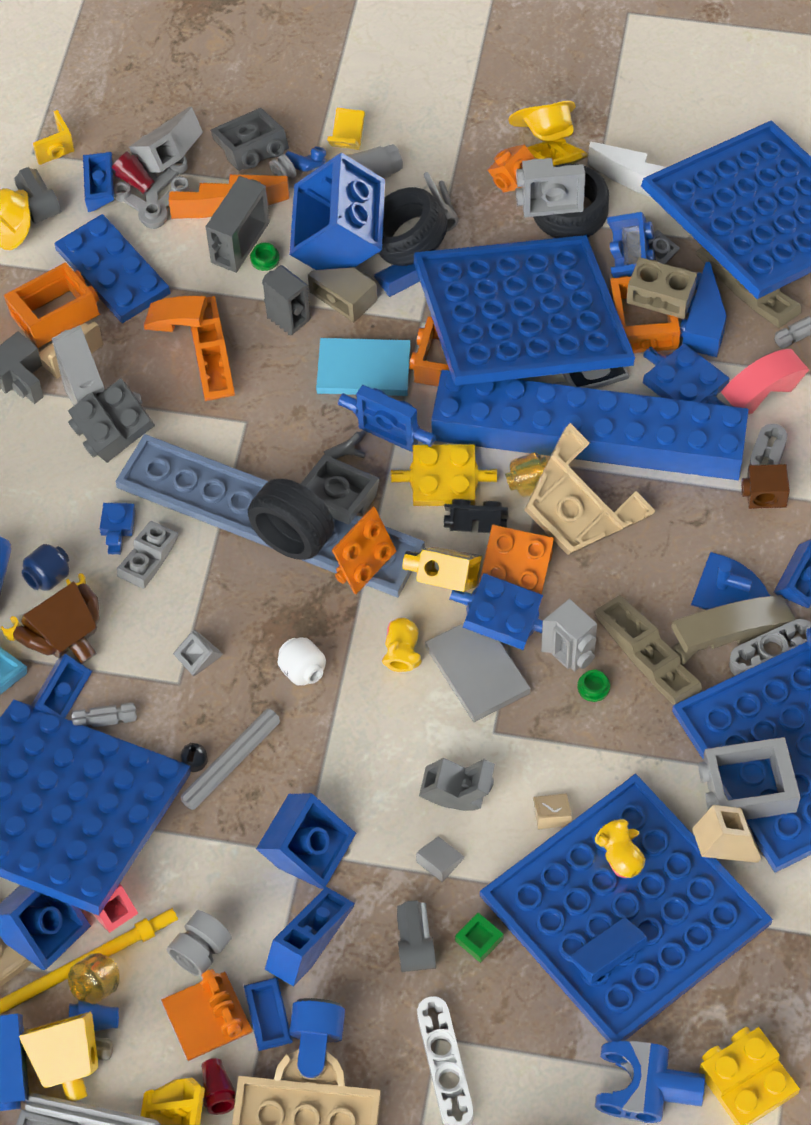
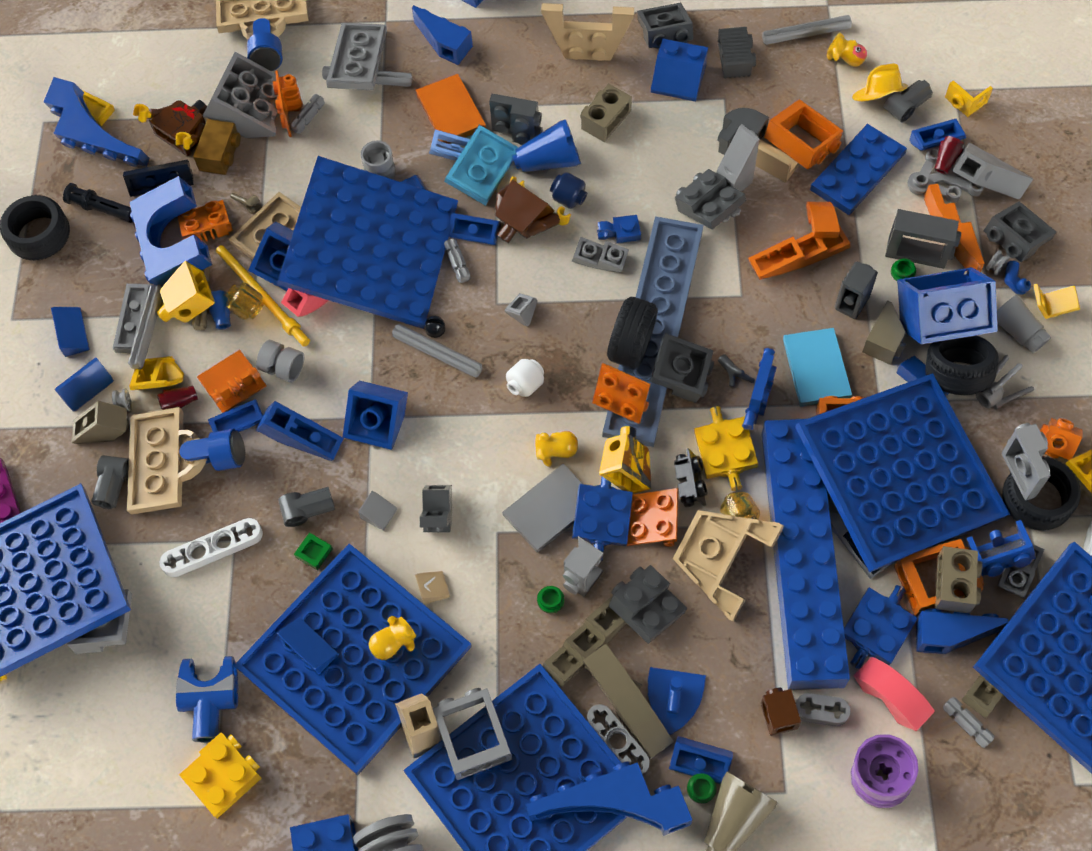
camera: 80 degrees right, 5 degrees up
(621, 586) = (646, 603): none -> dark grey plate

